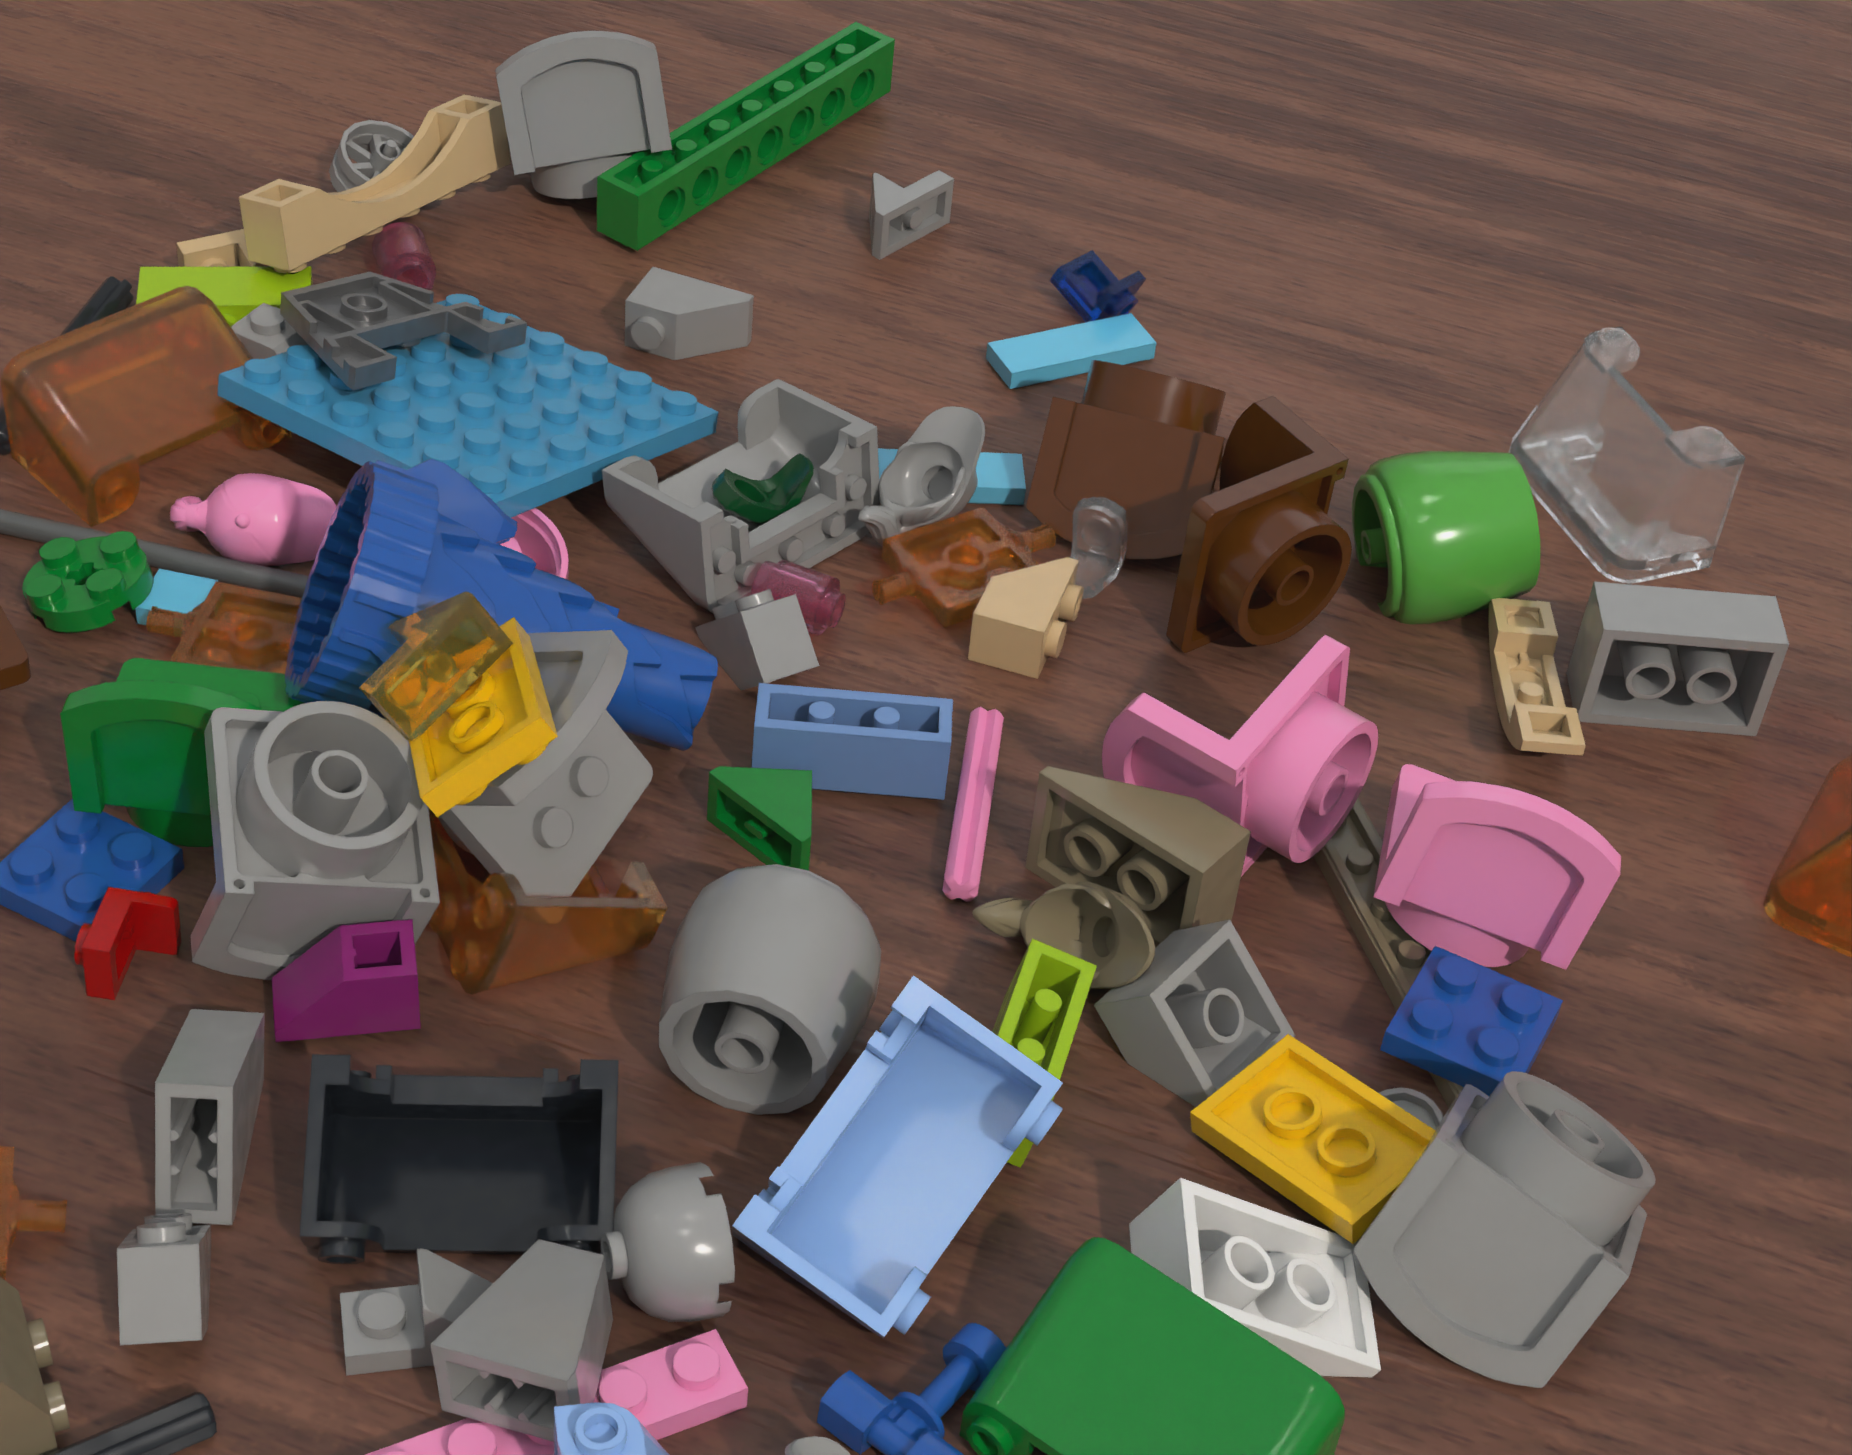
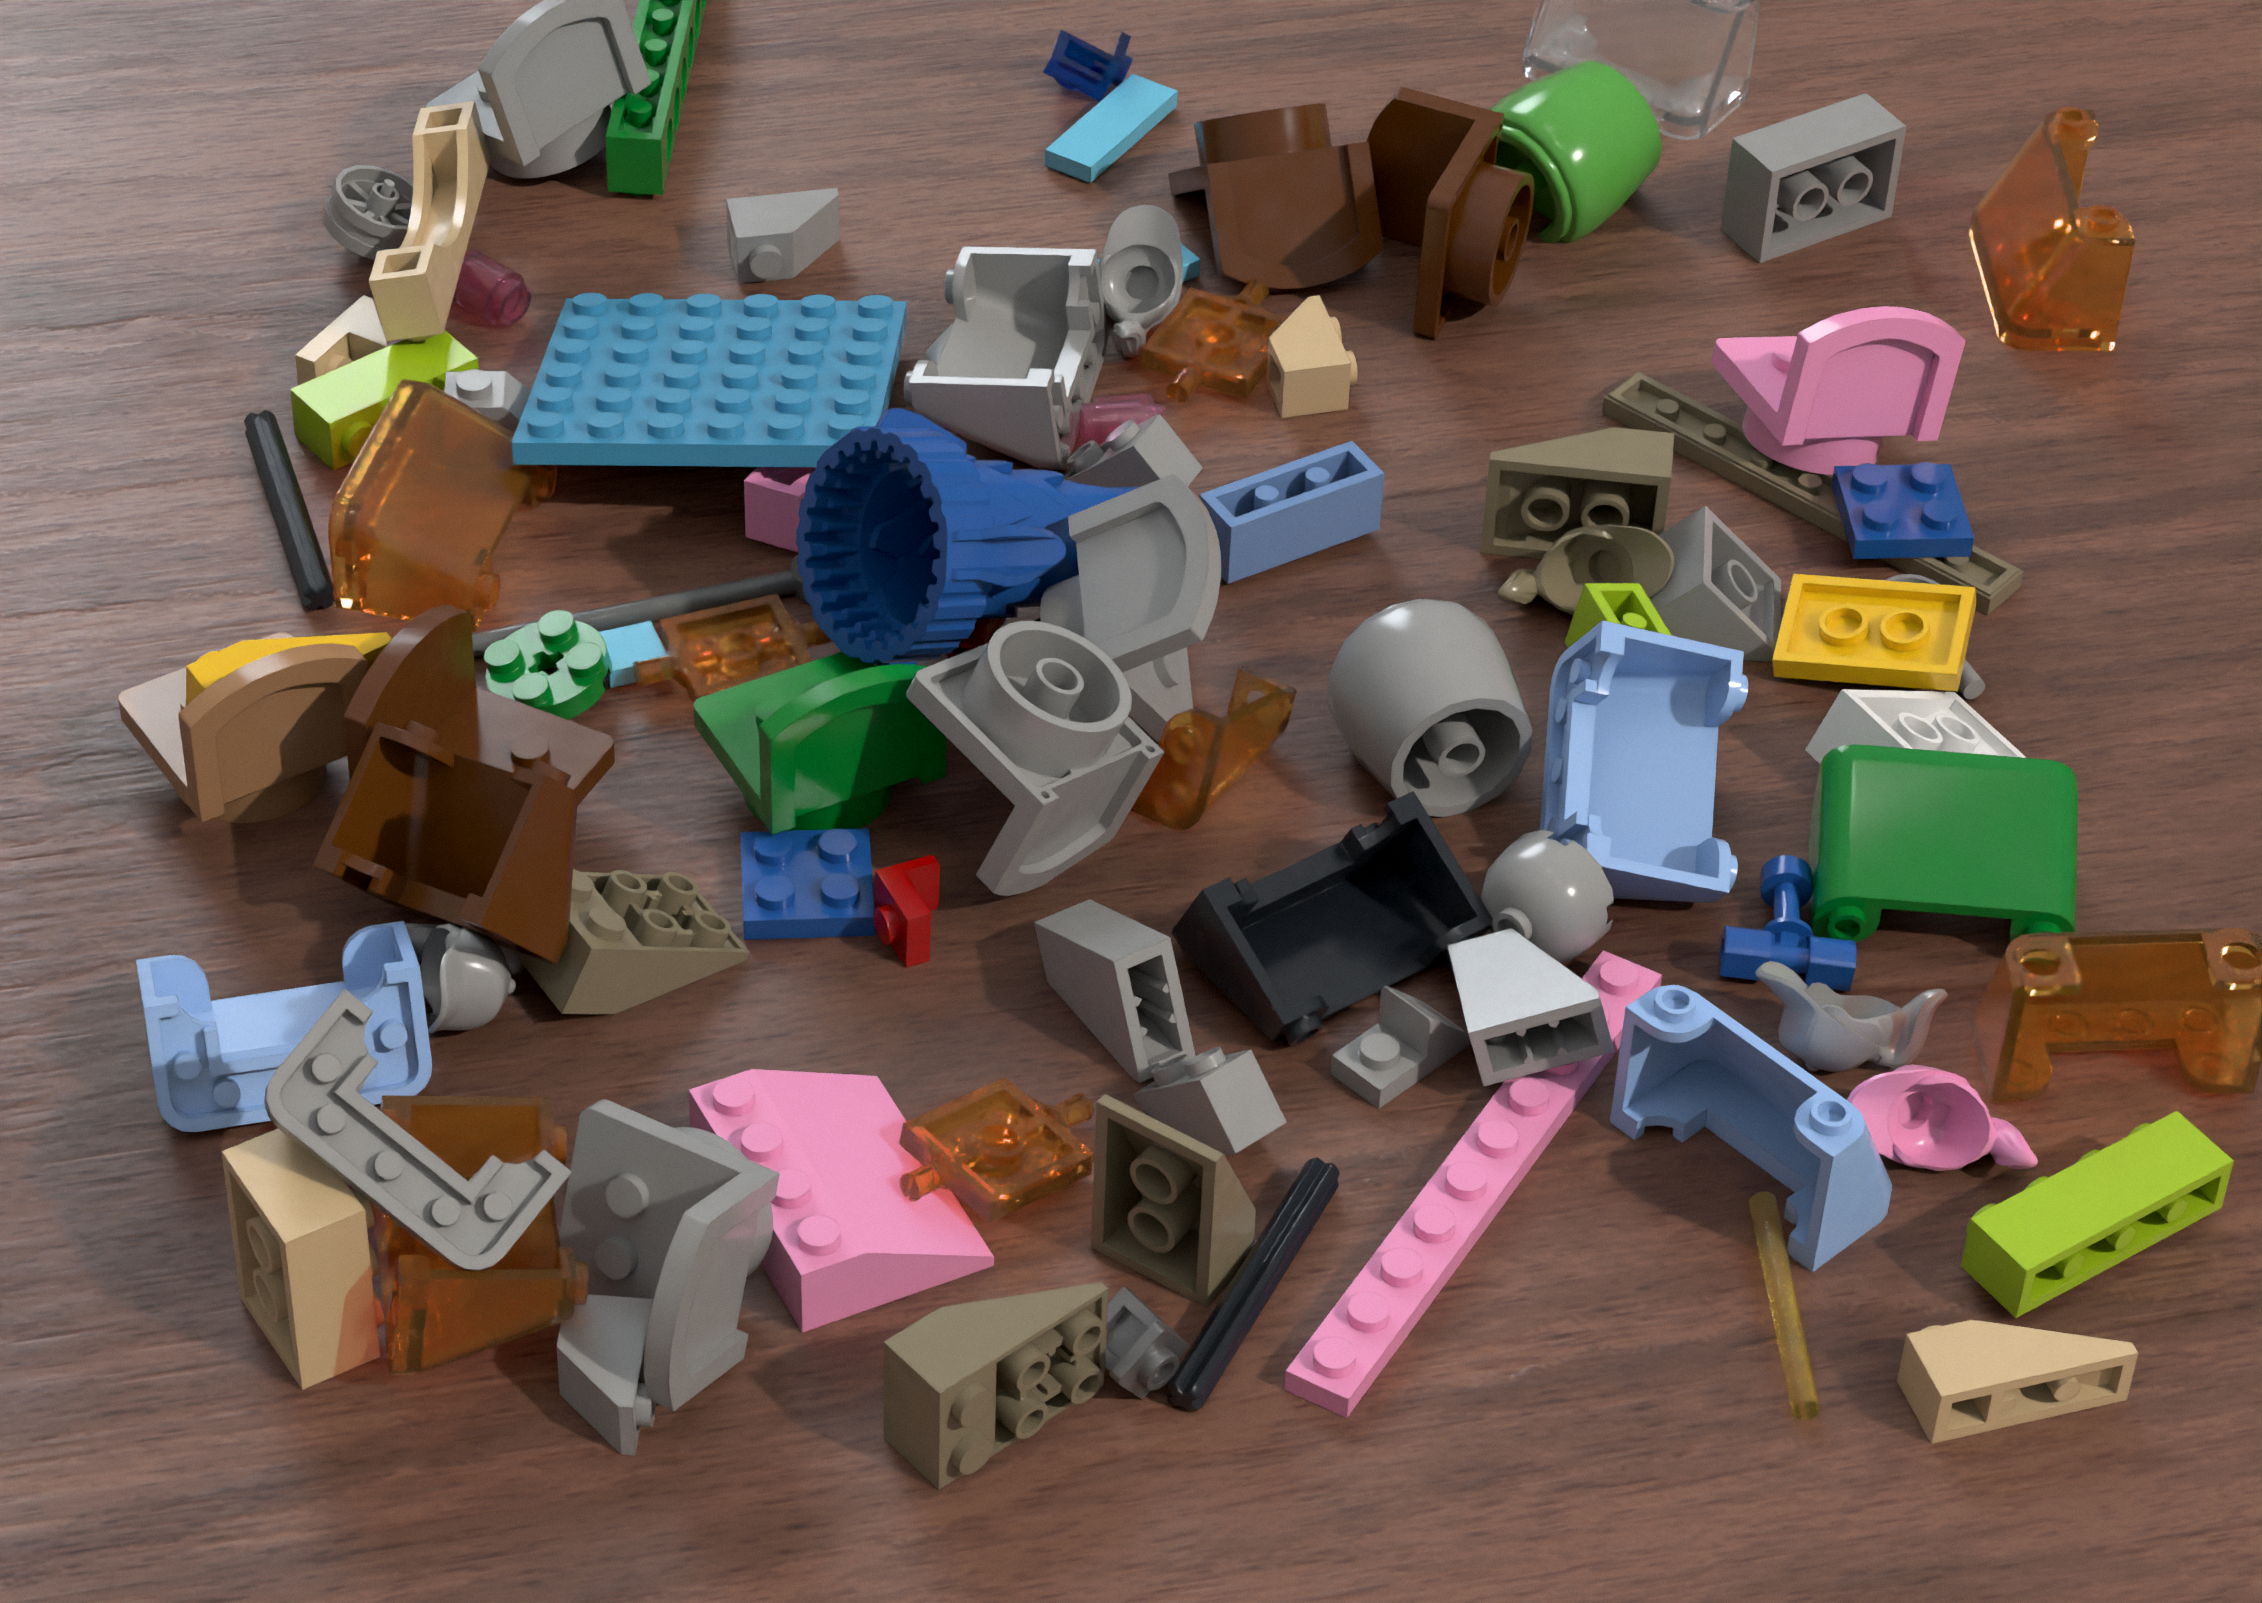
camera: 30 degrees left, 0 degrees up
(259, 519) = (636, 555): bright pink hair -> none
(350, 984) = (1122, 849): magenta slope -> none
(362, 313) = (583, 343): flat silver wing -> none
(438, 661) = (1058, 556): clear yellow slope -> none
(486, 730) = (1120, 585): yellow plate -> none
(764, 499) = (1032, 347): dark green hair -> none
(764, 811) = (1280, 598): green slope -> none
(907, 213) = (855, 64): light grey slope -> none
(973, 805) = (1421, 538): bright pink axle -> none
(1098, 543) = (1306, 270): clear hair -> none
(1280, 776) = (1643, 389): bright pink piece -> none
(1510, 1230) = (2061, 629): light grey piece -> none
(1527, 679) = (1681, 225): tan slope -> none

